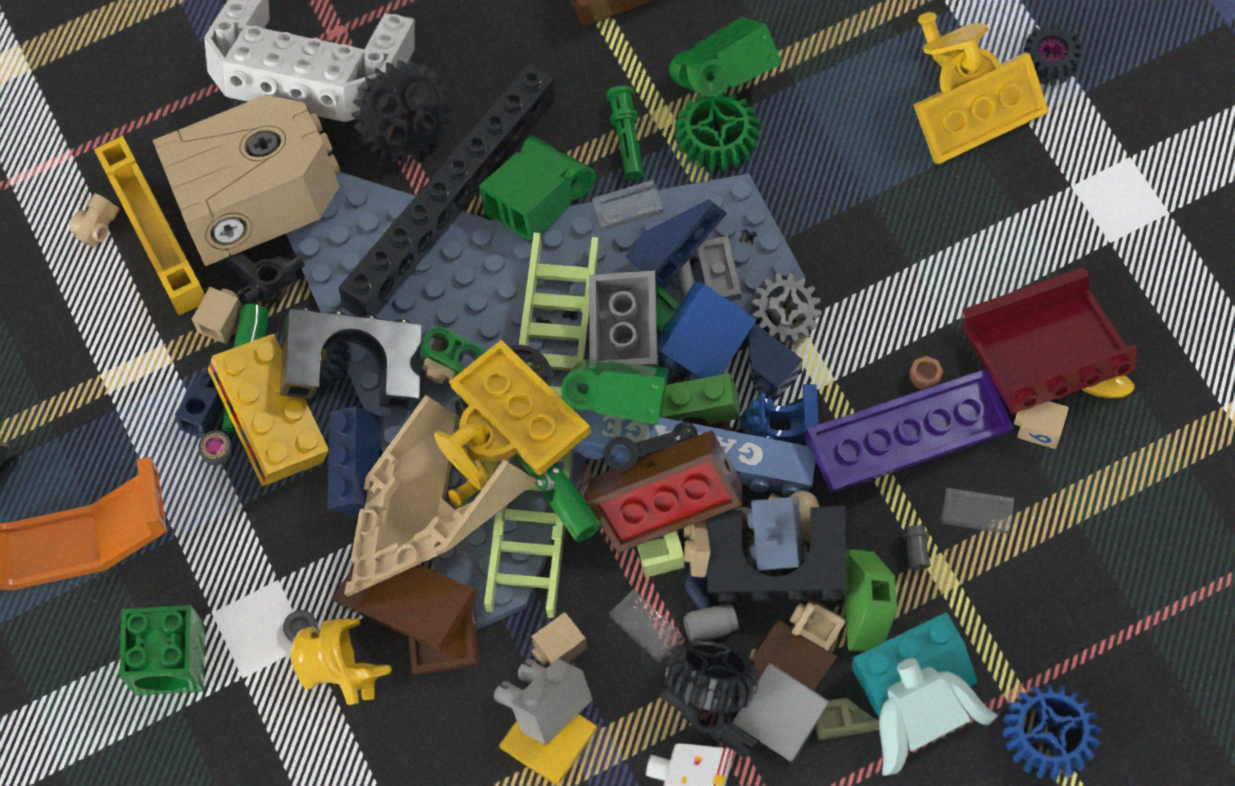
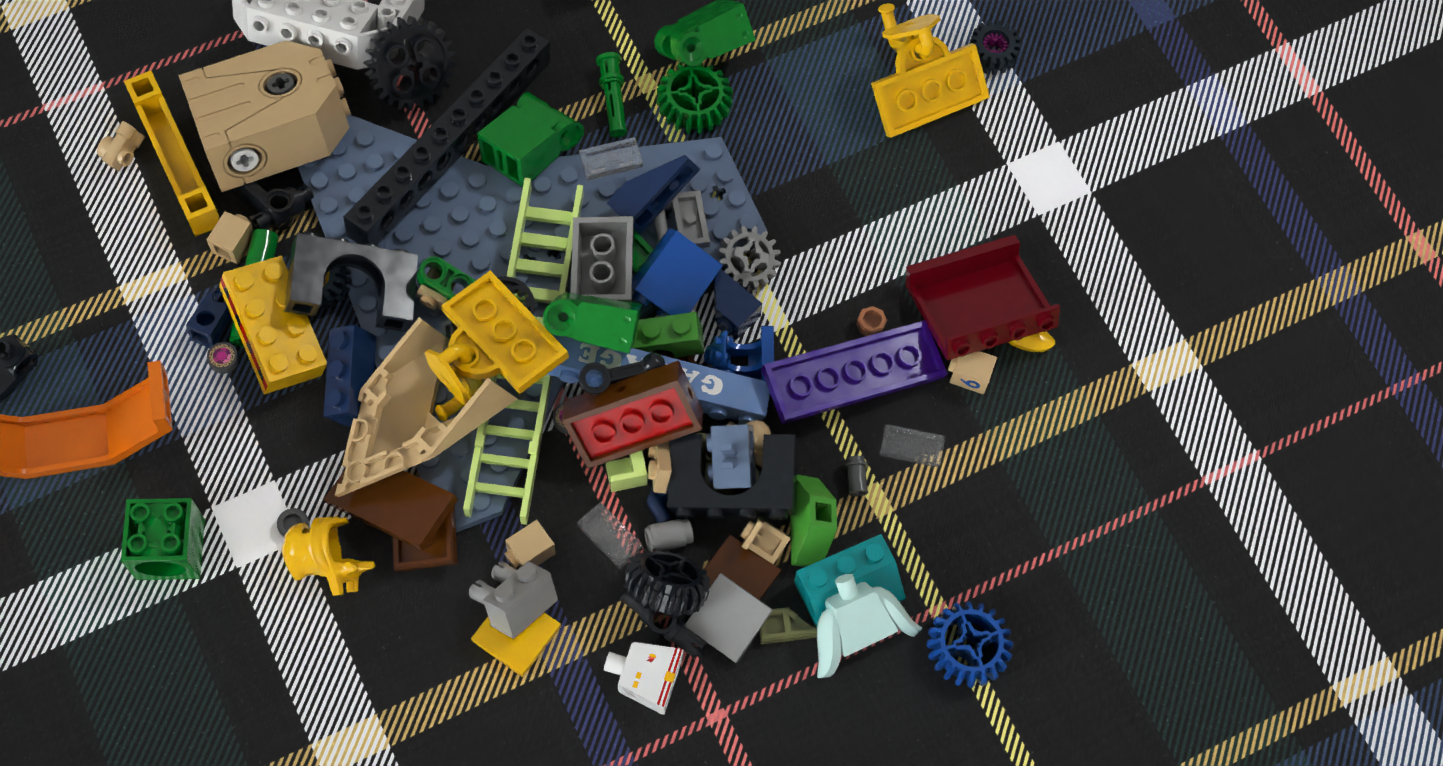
camera: 10 degrees left, 0 degrees up
(565, 501) = (541, 418): green piece -> none

